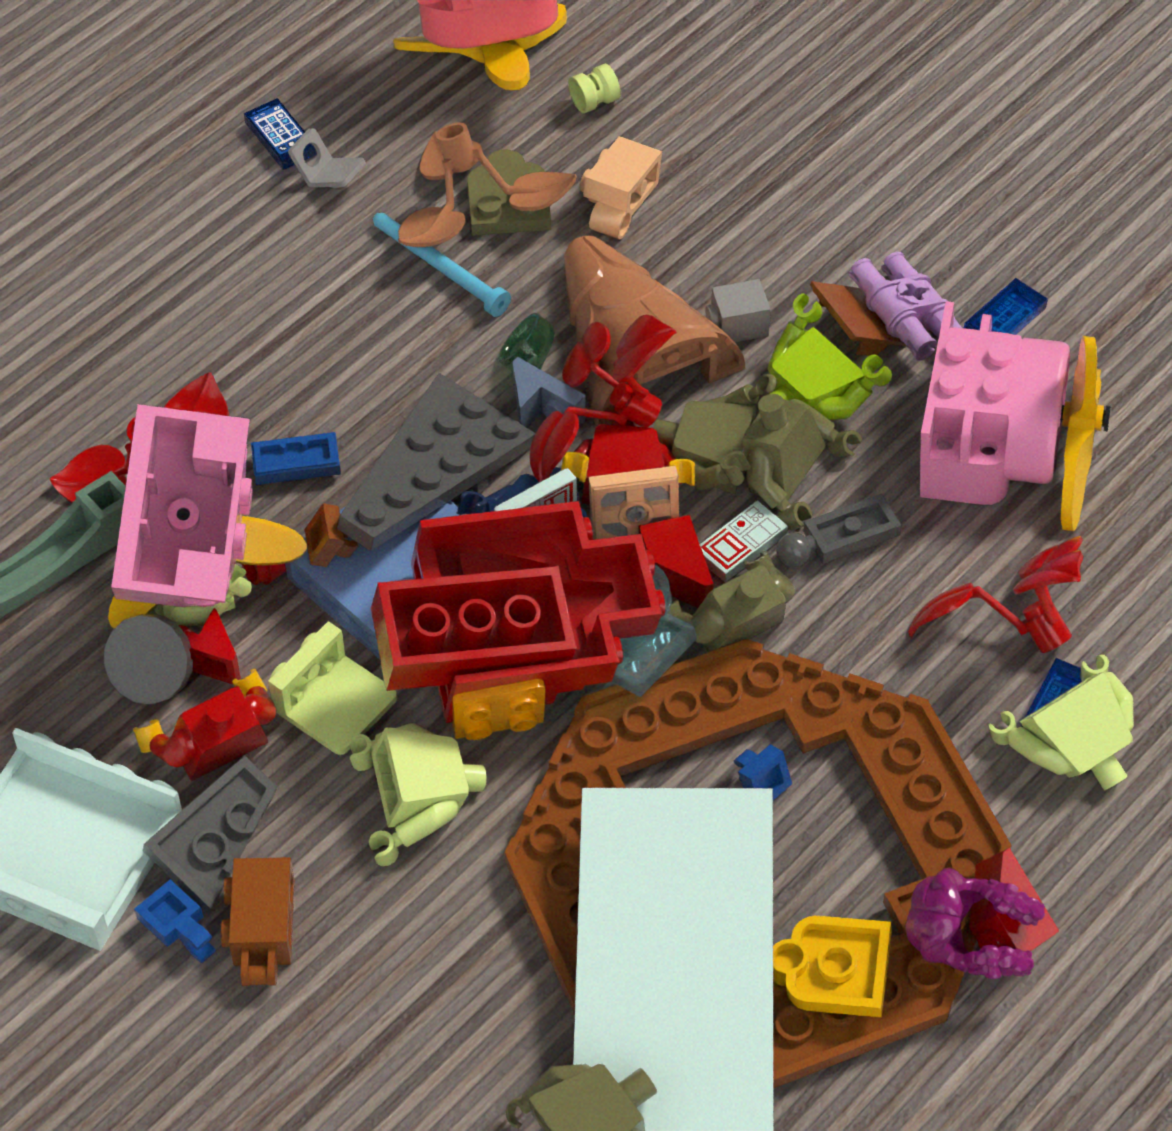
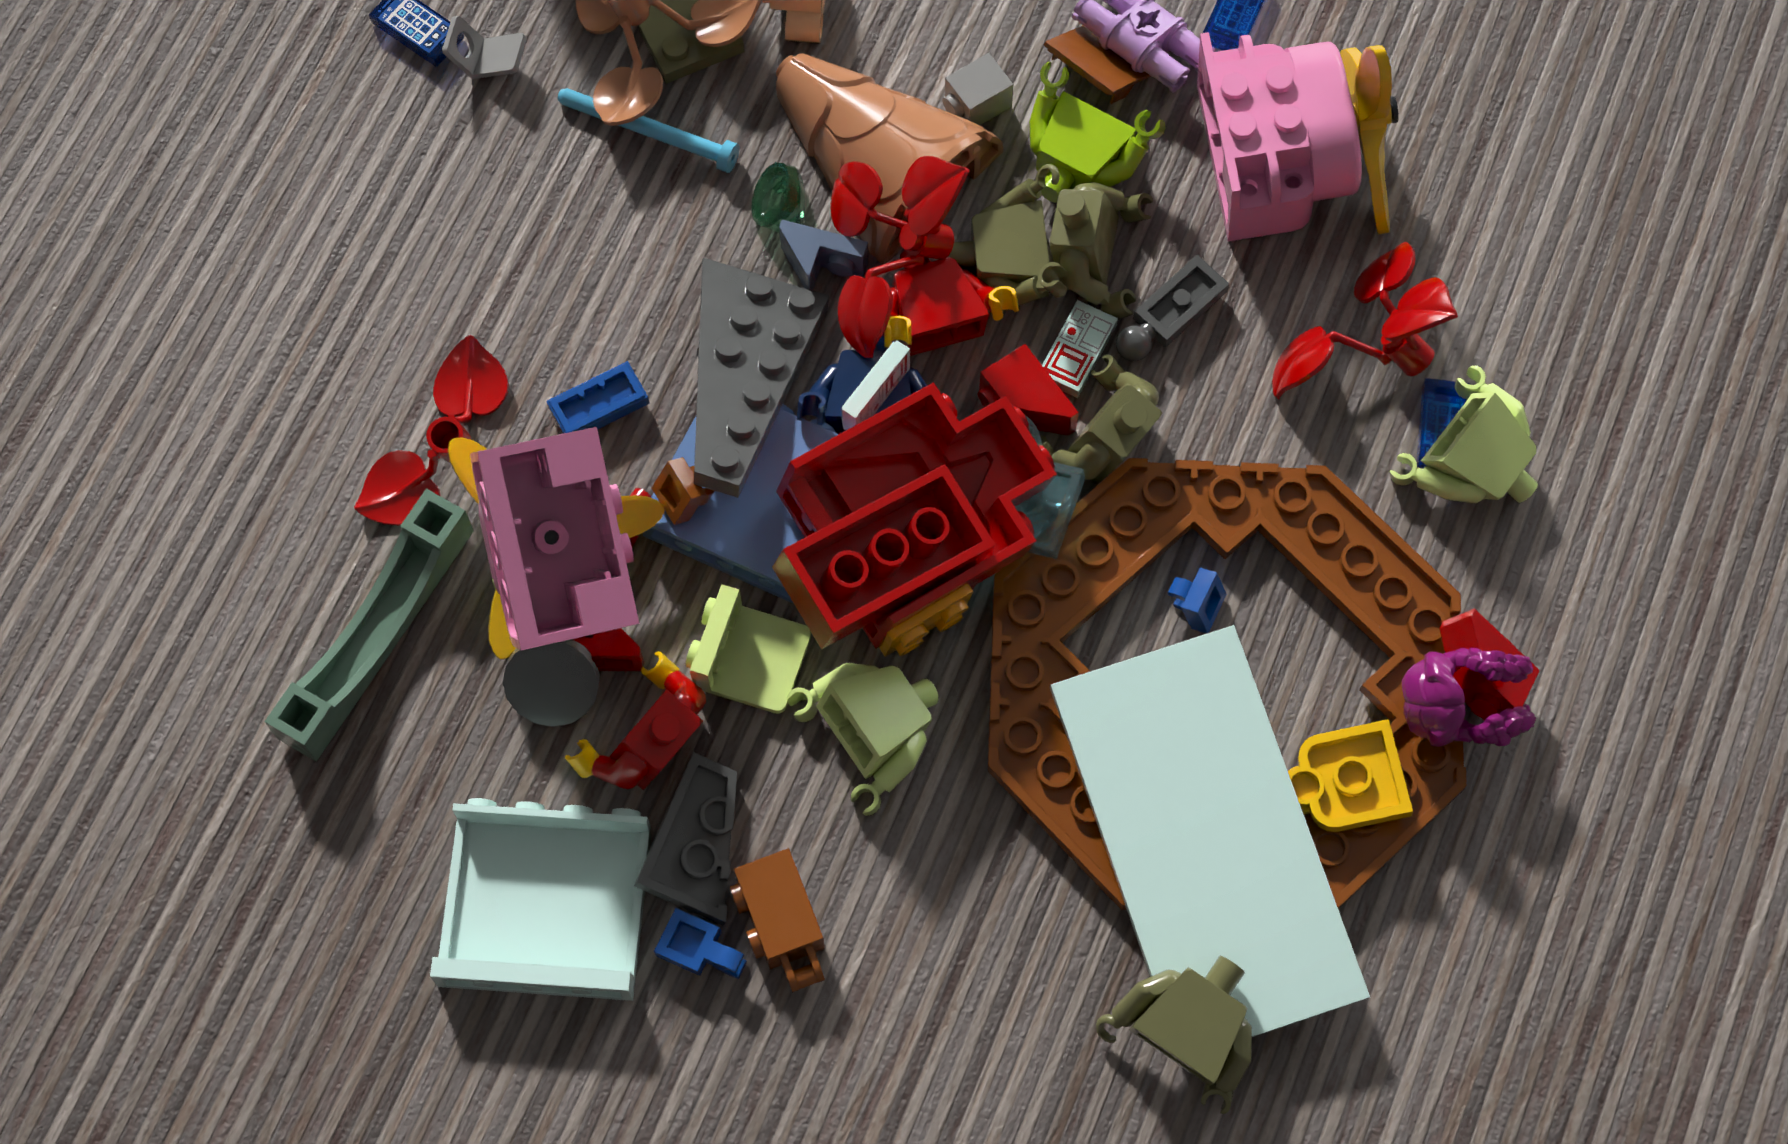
camera: 20 degrees left, 15 degrees up
(632, 499) = (960, 353): light nougat piece -> none

